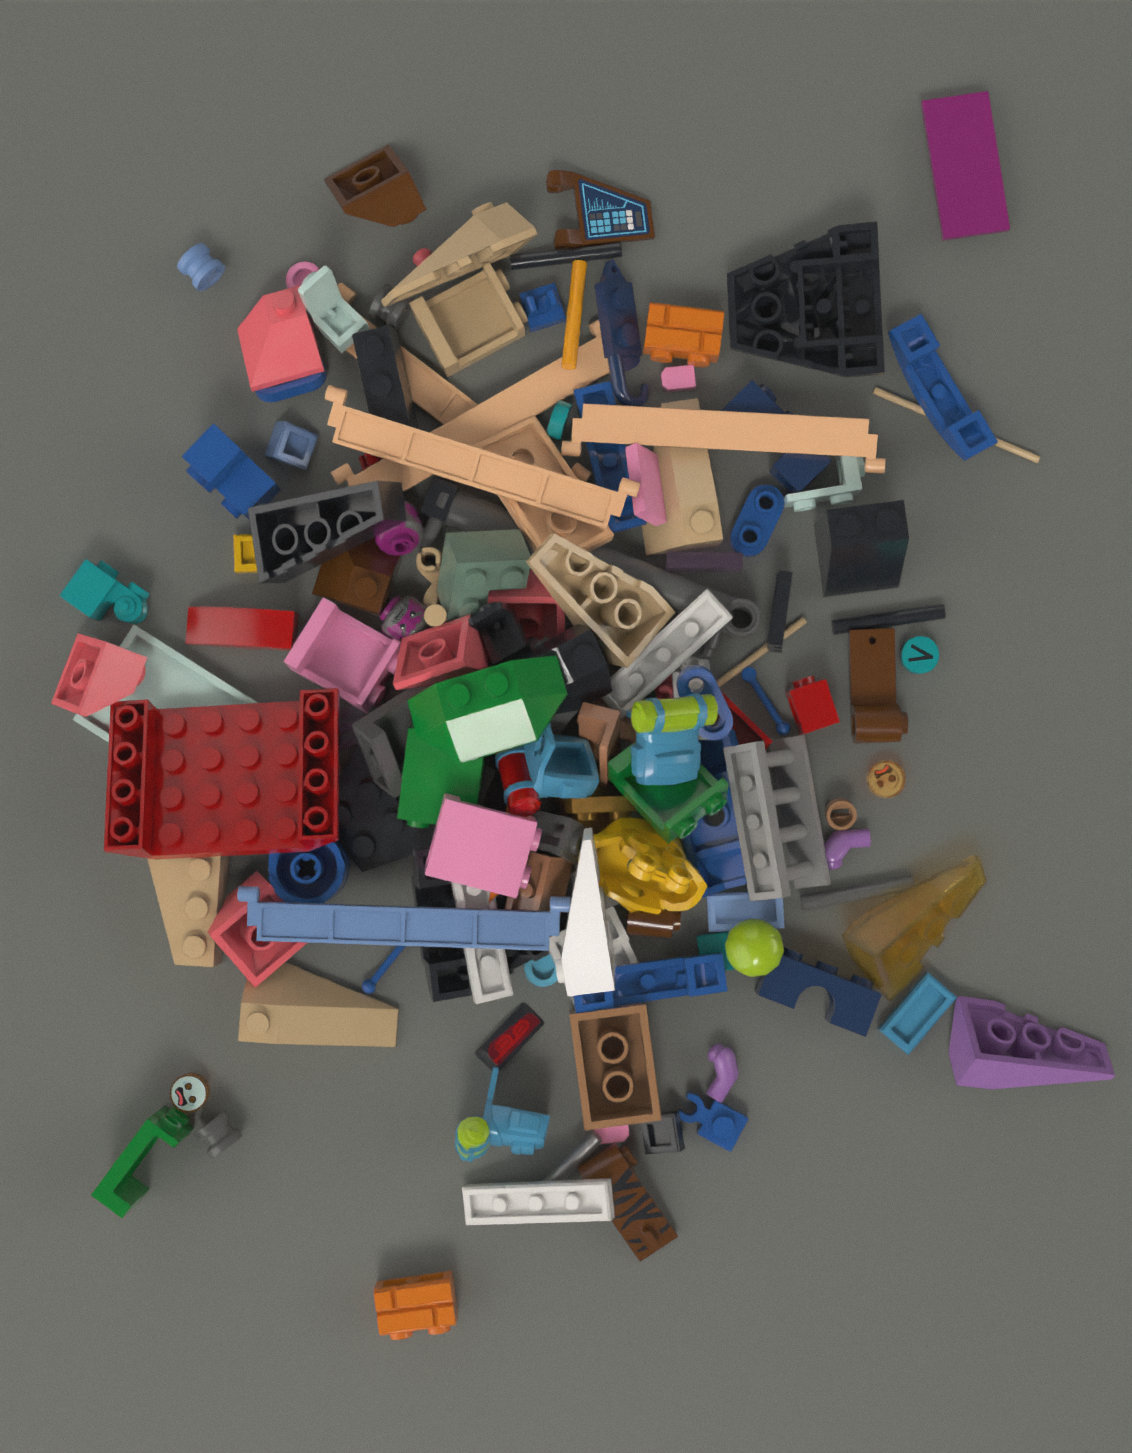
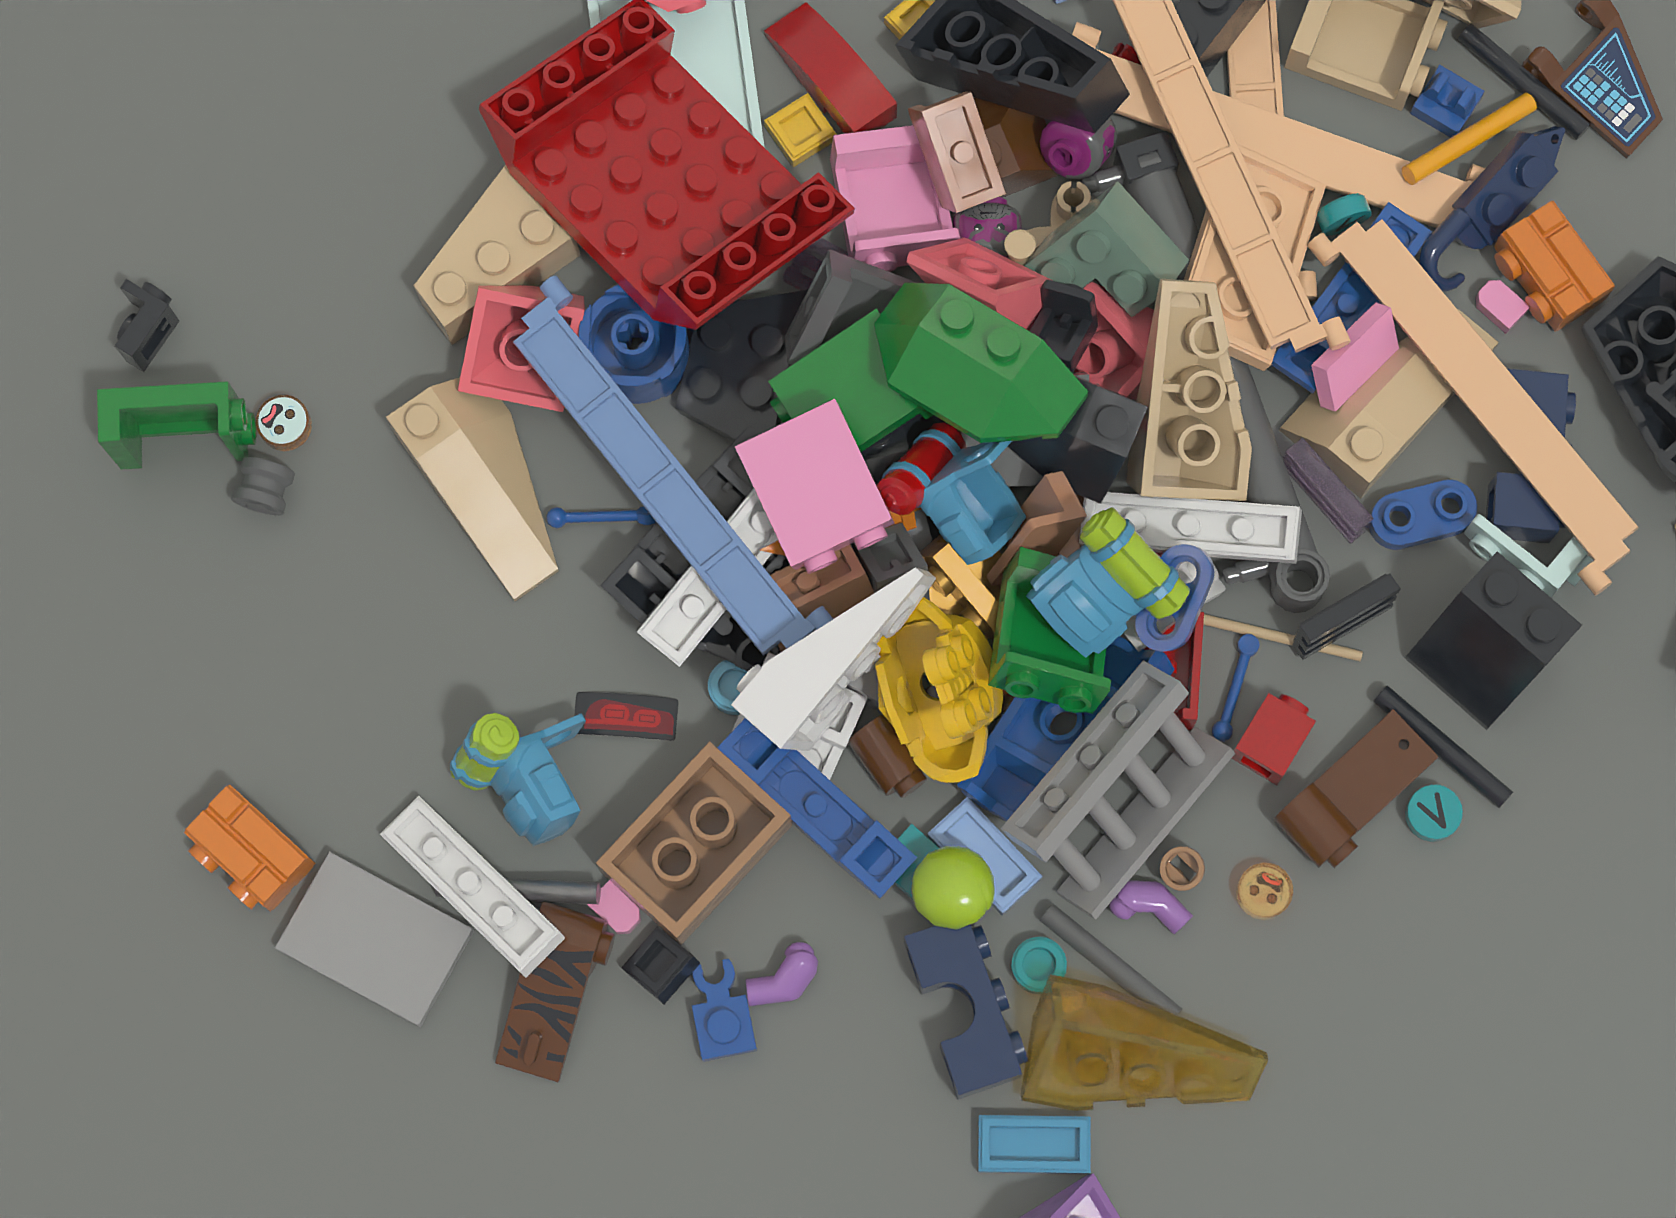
camera: 50 degrees right, 10 degrees down
(73, 1126) = (148, 330): none -> black bracket
(260, 671) = (800, 130): none -> yellow tile
(353, 604) = (957, 152): none -> panel
(520, 1273) = (374, 939): none -> light grey tile
(826, 931) = (1035, 961): none -> teal tile

